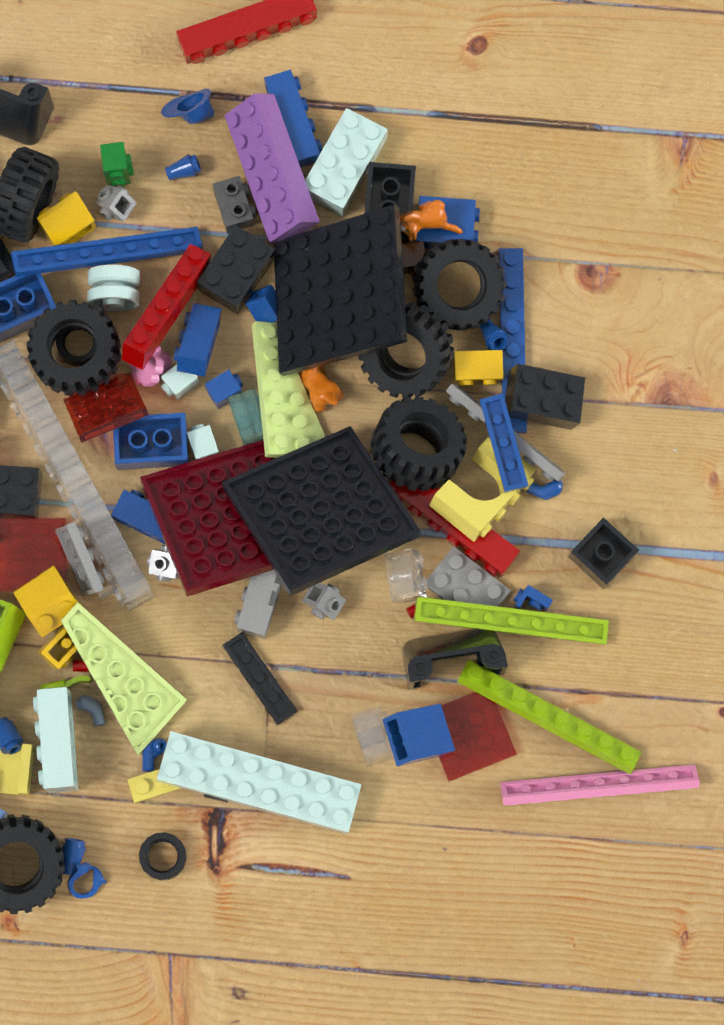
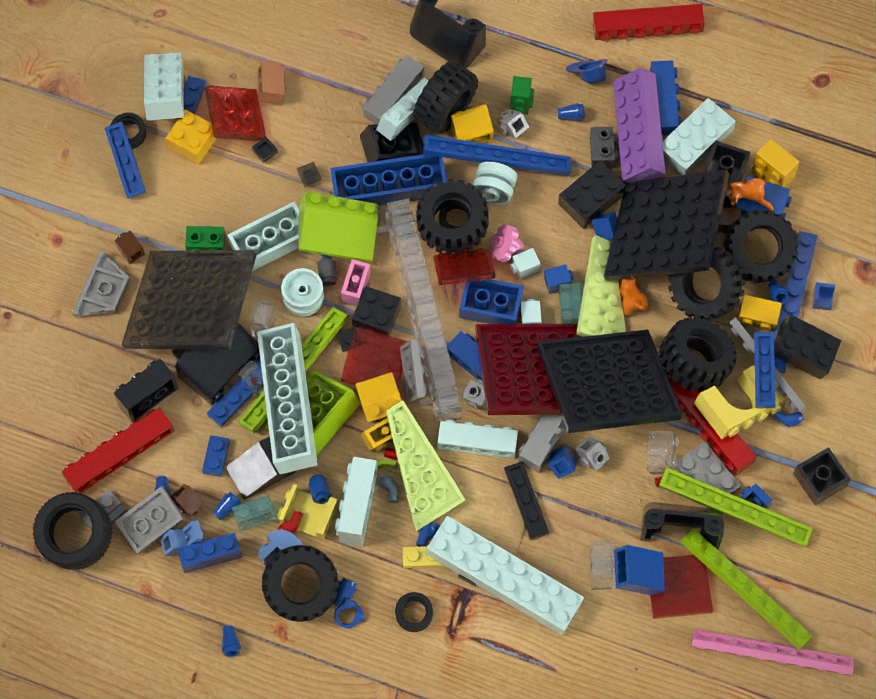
camera: 20 degrees right, 10 degrees down
(165, 307) = (529, 205): red brick -> none
(180, 620) = (477, 439): none -> light aqua brick
(197, 339) = (548, 236): blue brick -> none
(291, 619) = (563, 461): none -> blue panel
(449, 173) = (775, 164): none -> yellow brick
(548, 325) = (823, 296): none -> blue panel

